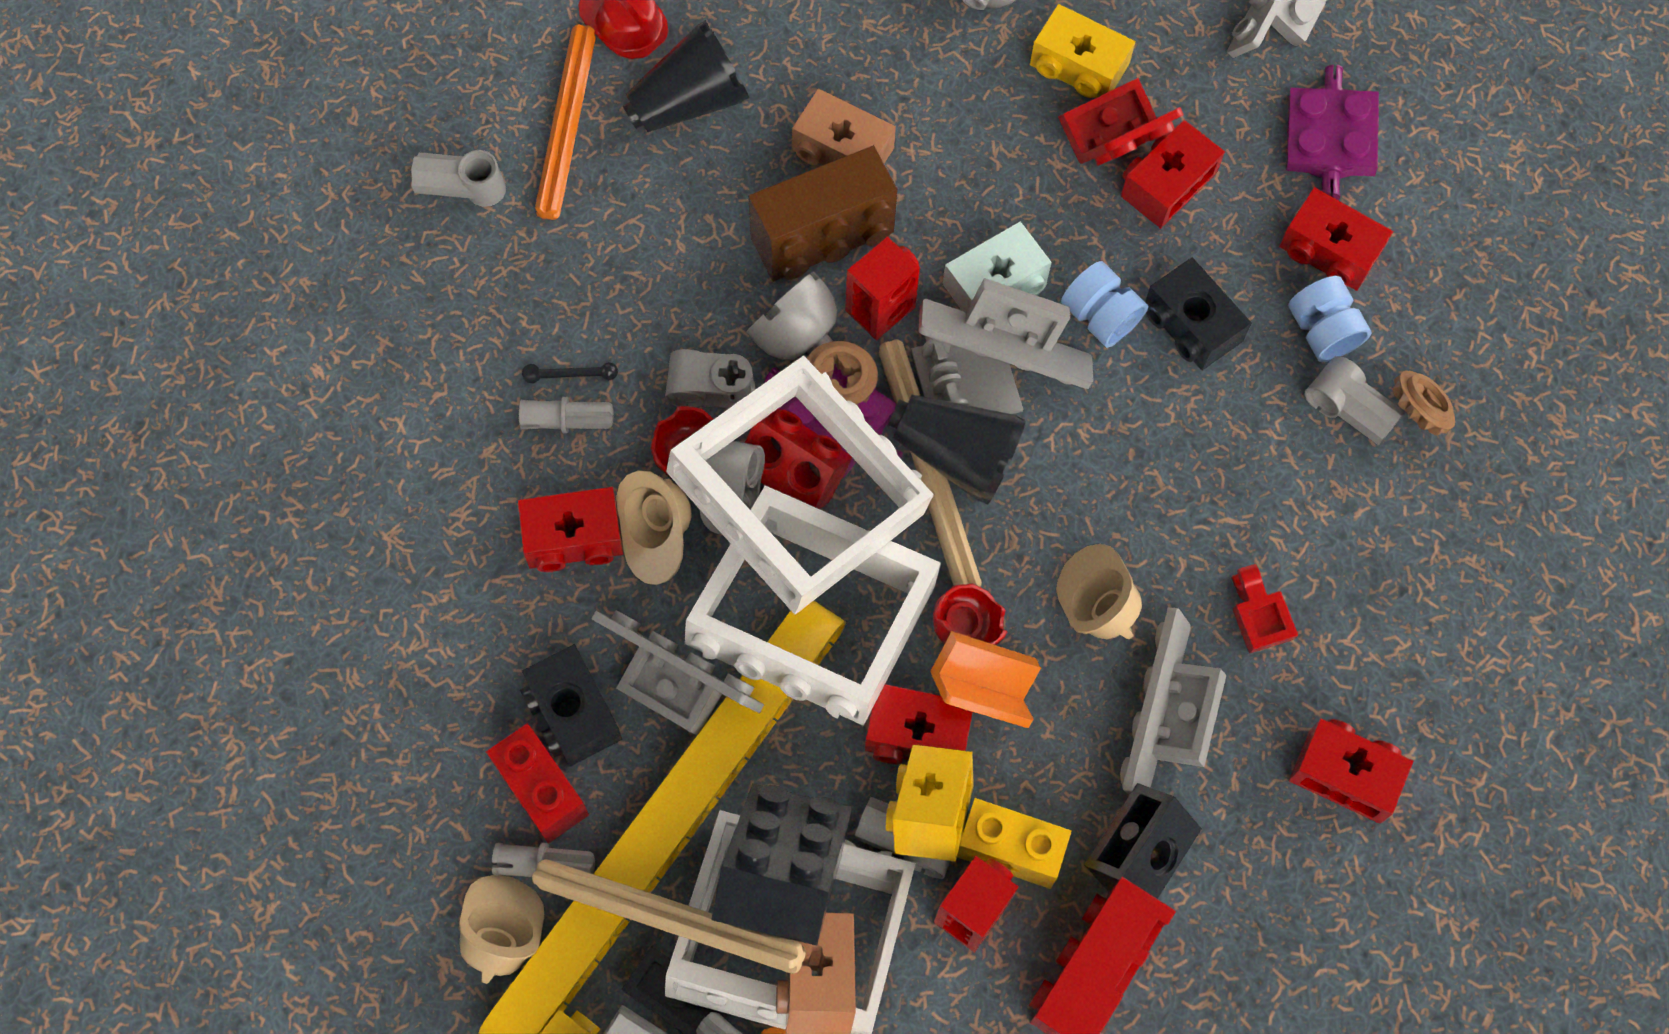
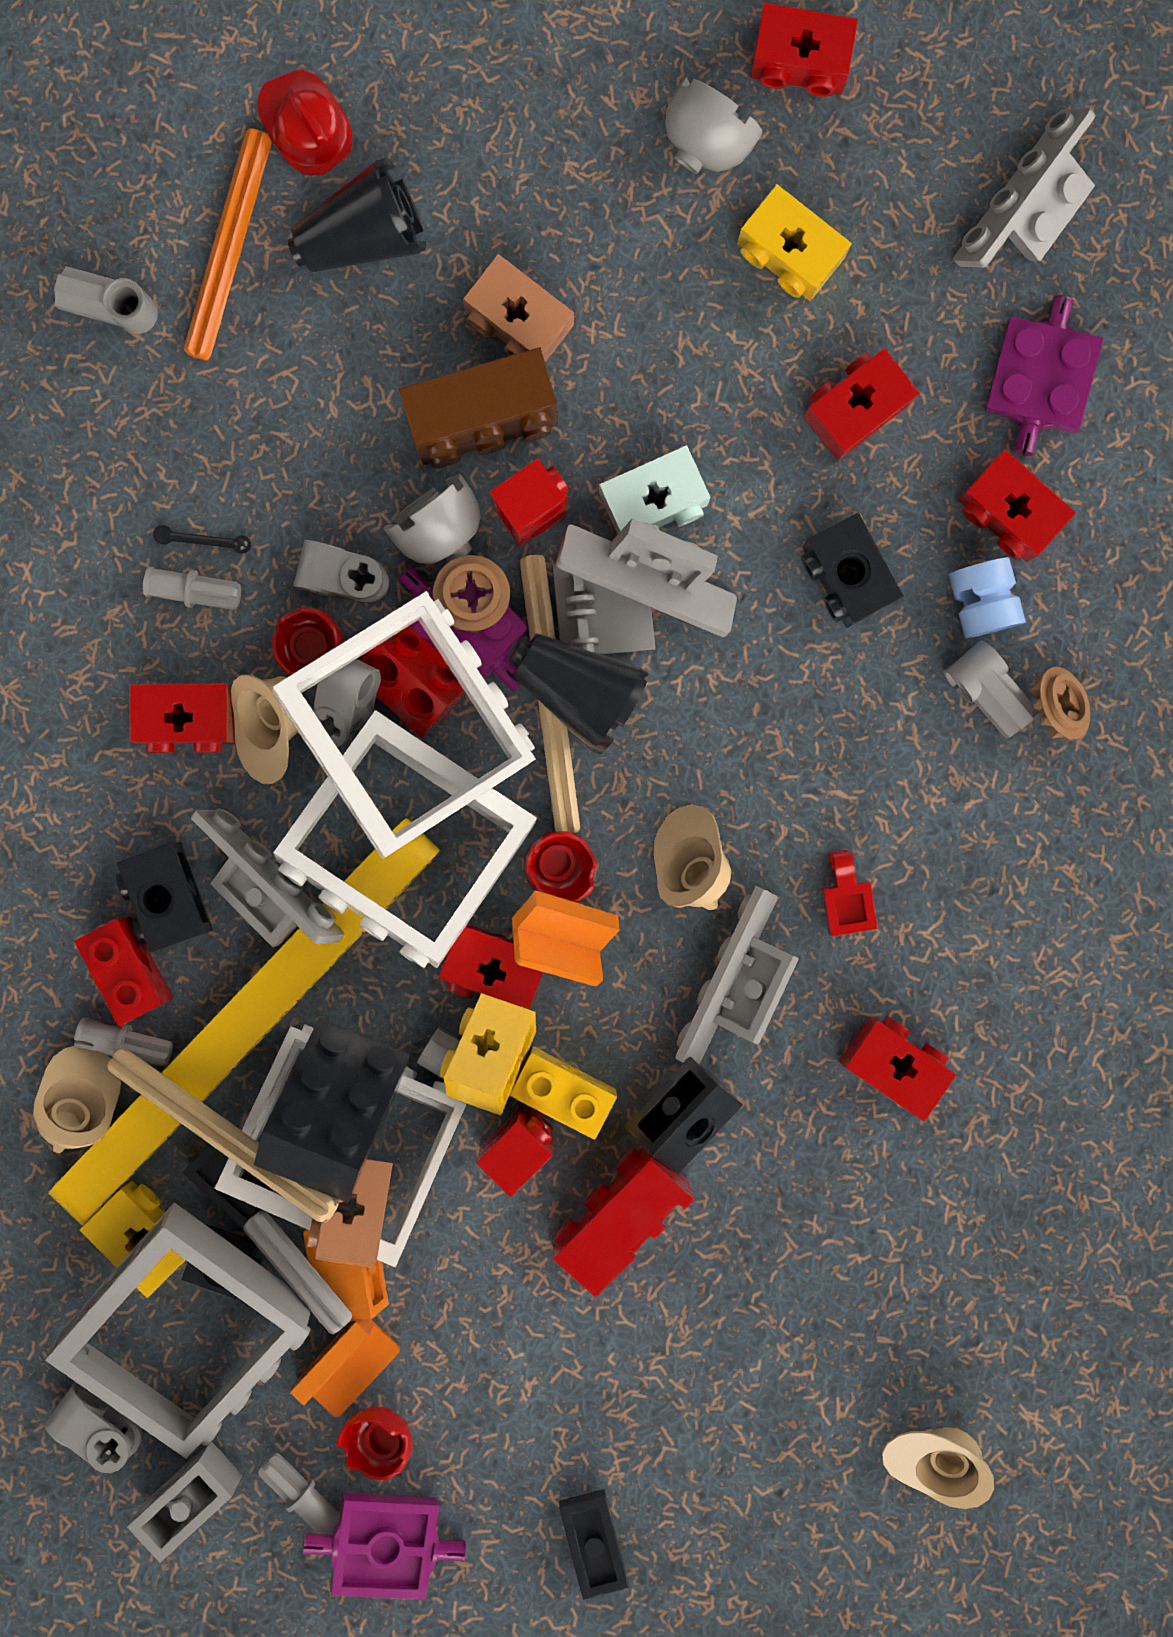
camera: 10 degrees right, 20 degrees up
(1101, 301) = (758, 547): light blue wheel -> none
(1115, 124) = (813, 340): red bracket -> none

